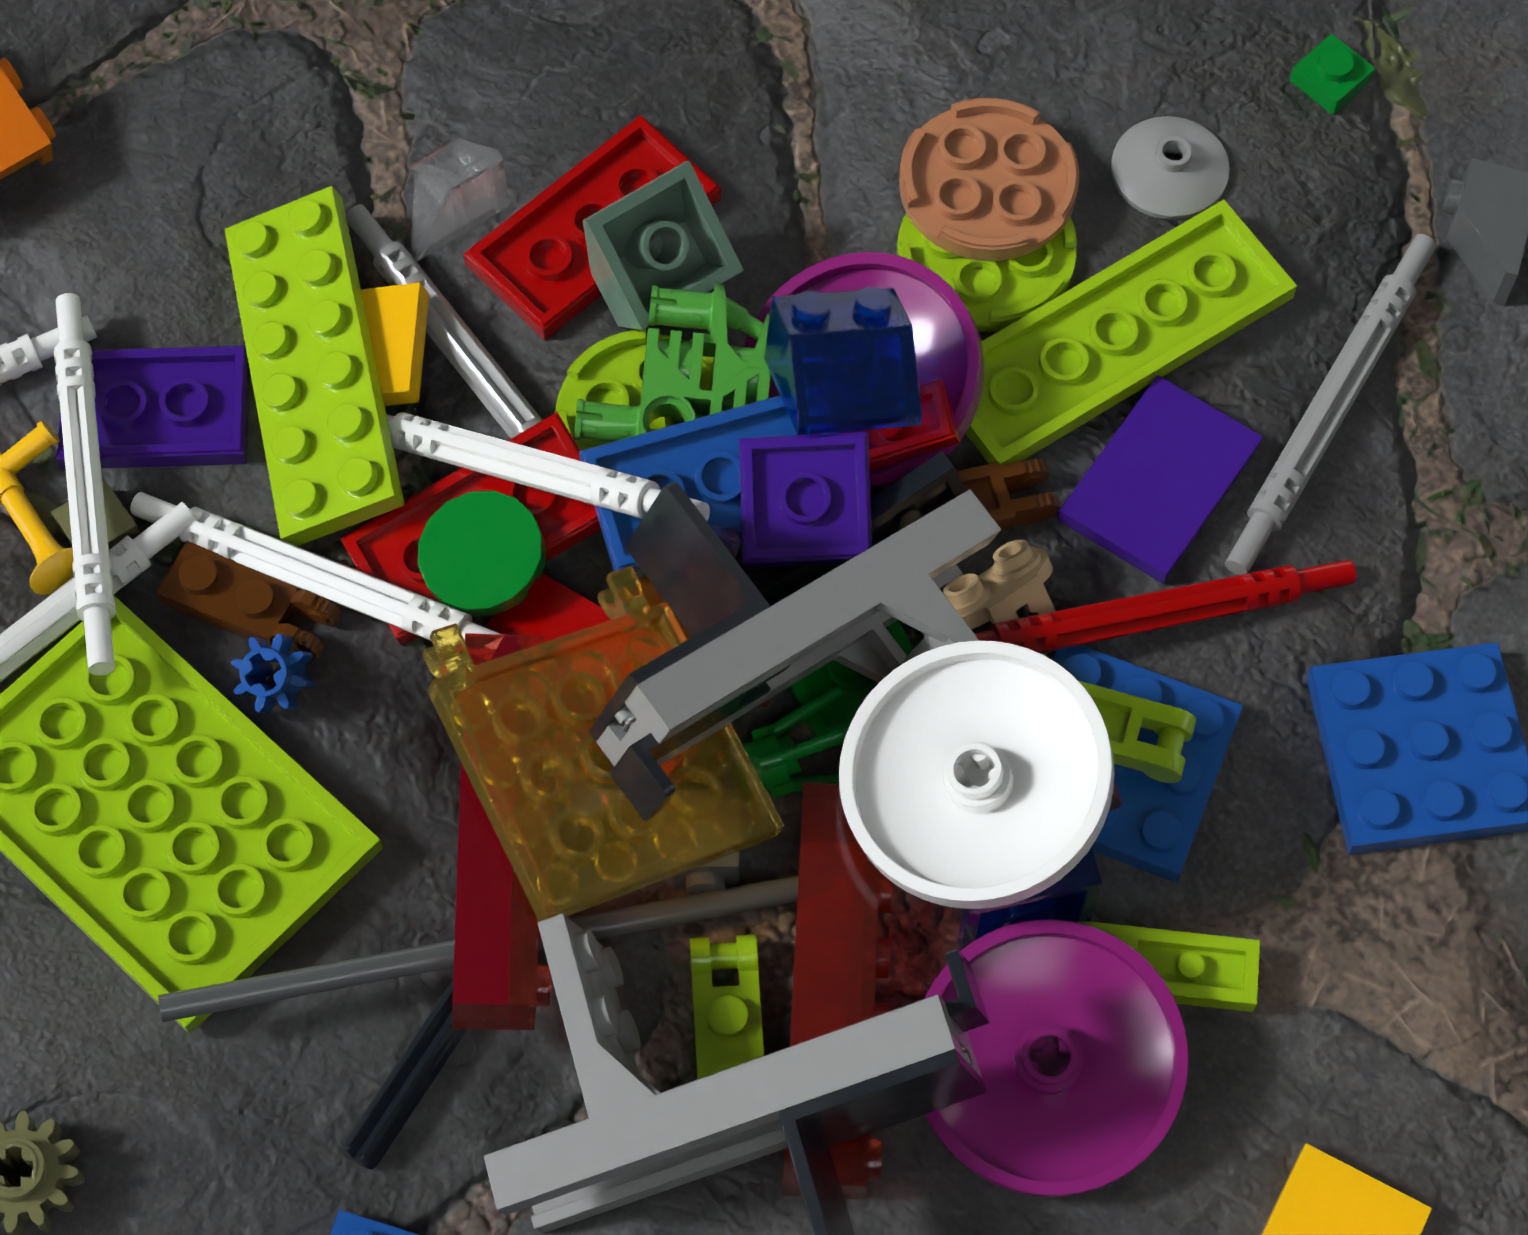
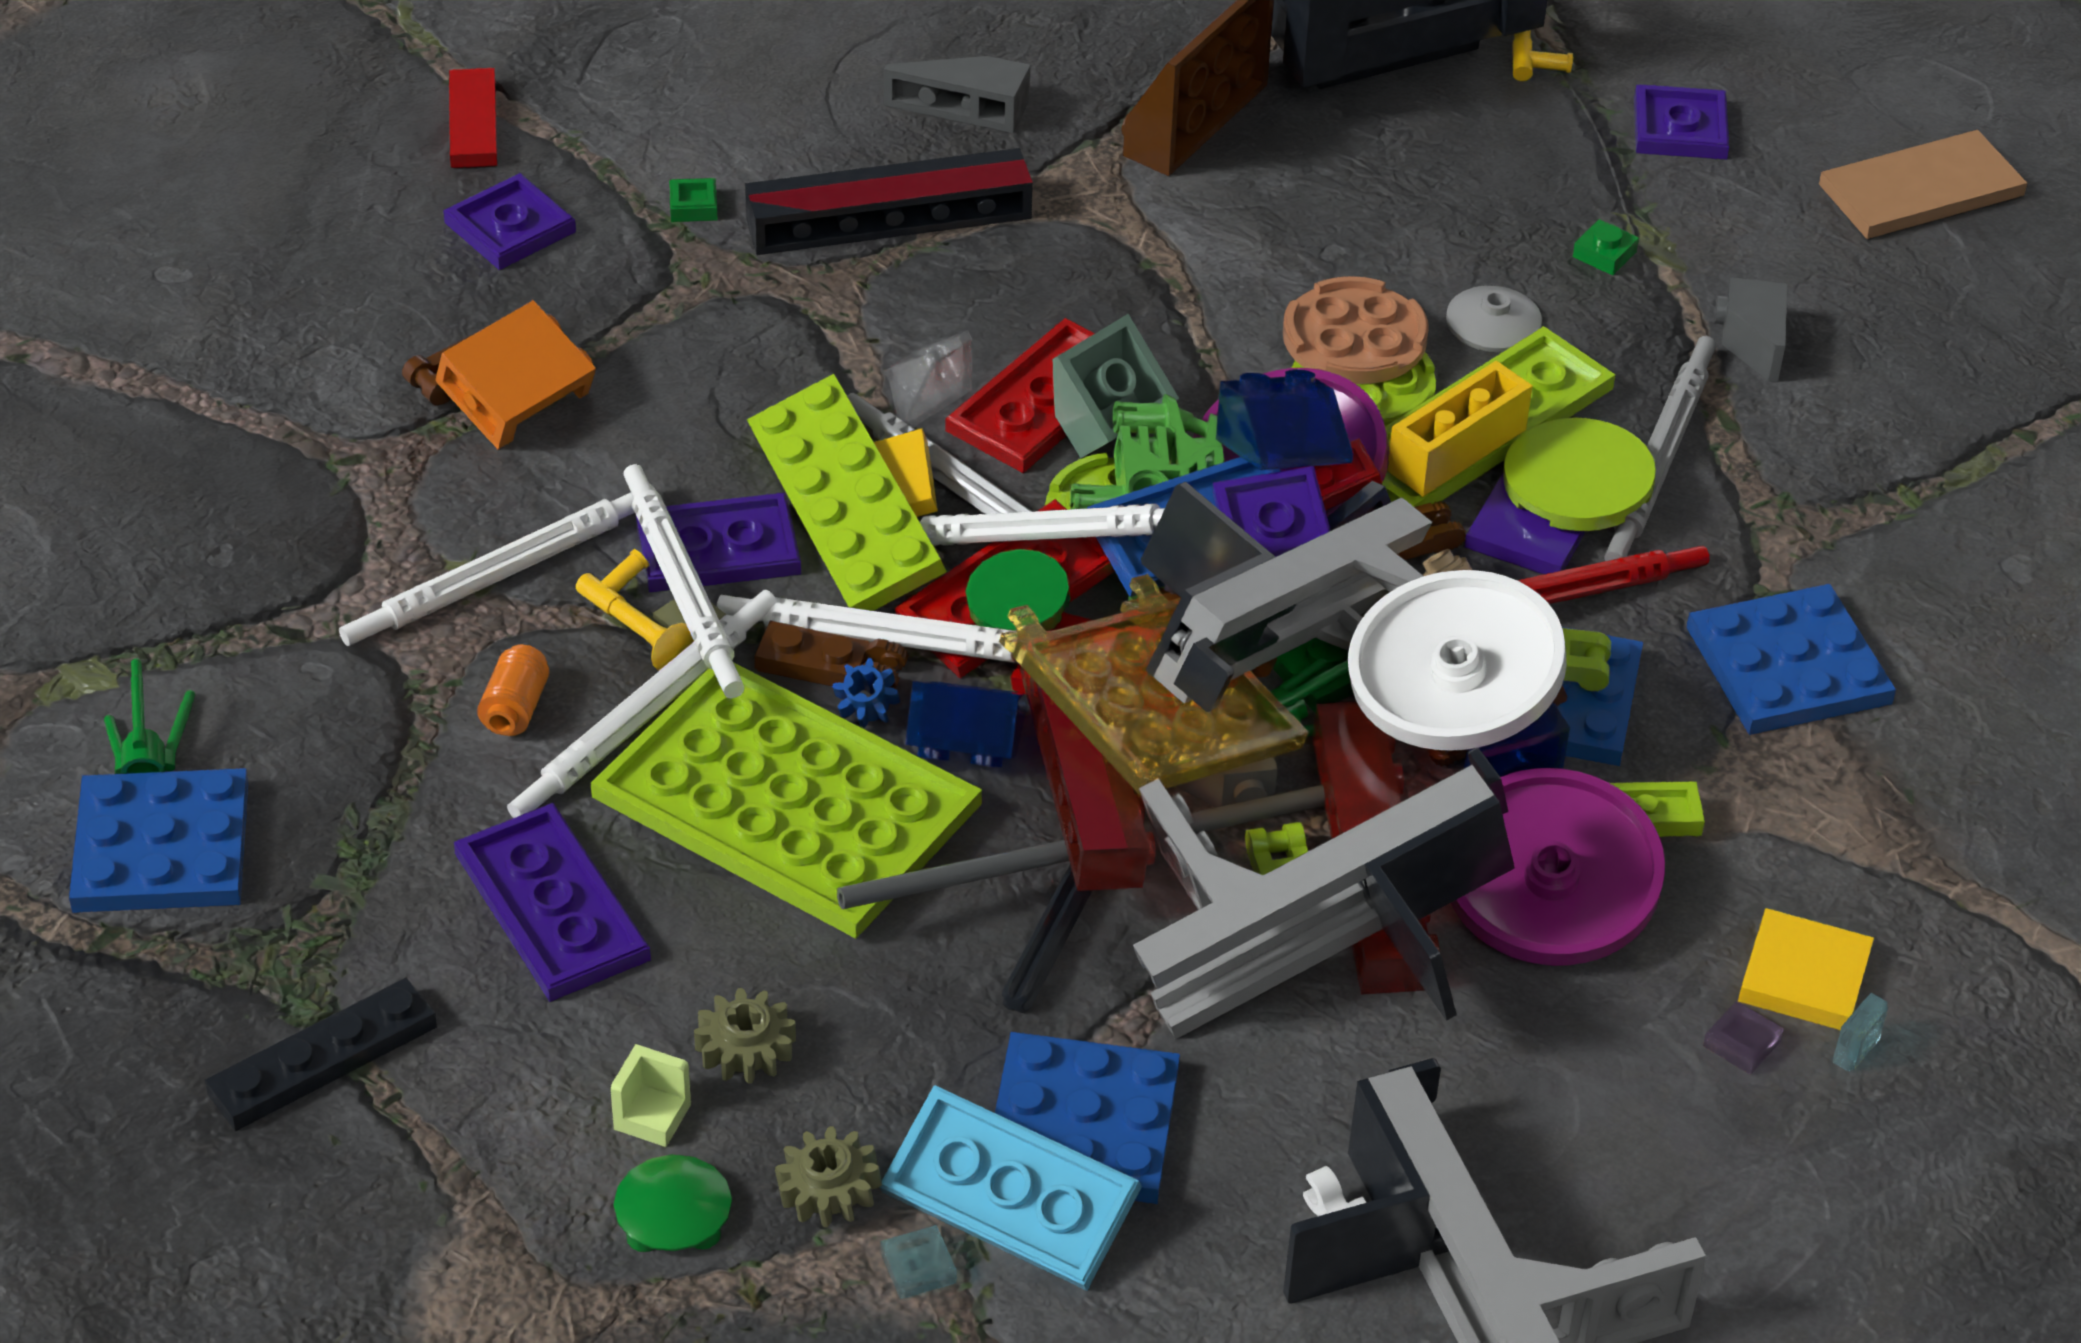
camera: 10 degrees left, 20 degrees down
(378, 726) = (966, 721): none -> clear blue slope
(1074, 369) = (1459, 428): none -> yellow brick
(1217, 440) = (1579, 473): none -> lime tile

